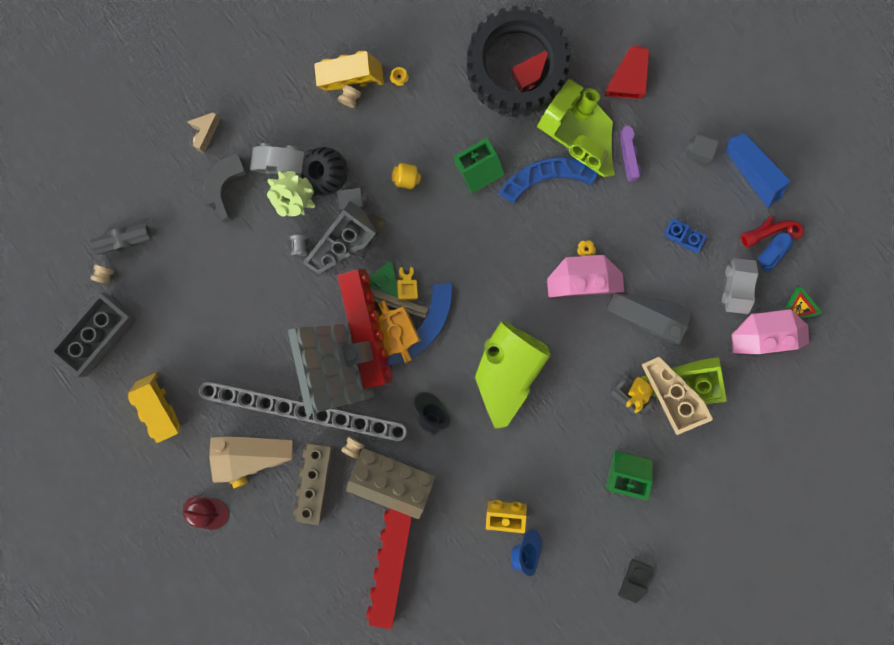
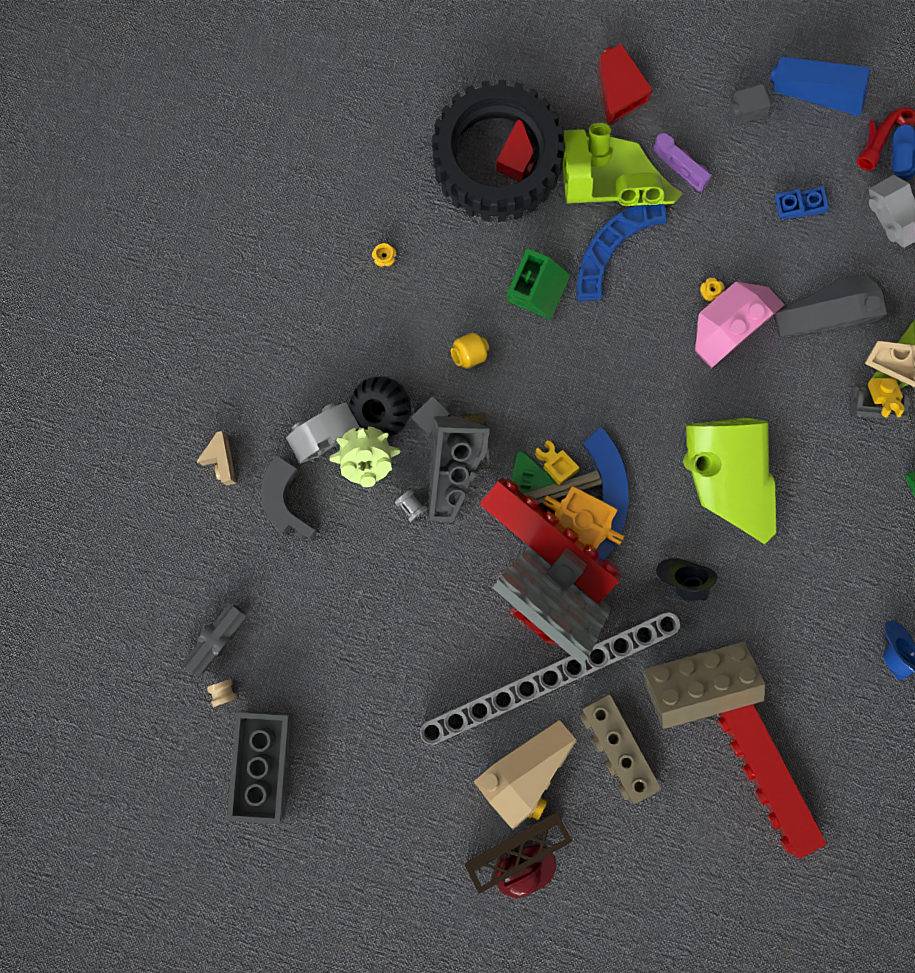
camera: 25 degrees left, 5 degrees down
(153, 408) = (386, 796): yellow wedge -> none
(206, 490) = (511, 844): none -> dark brown fence
(348, 70) = (328, 287): yellow wedge -> none
(349, 96) = (348, 312): tan wheel -> none
(353, 447) = (632, 677): tan wheel -> none
(506, 516) = (851, 628): yellow brick -> none

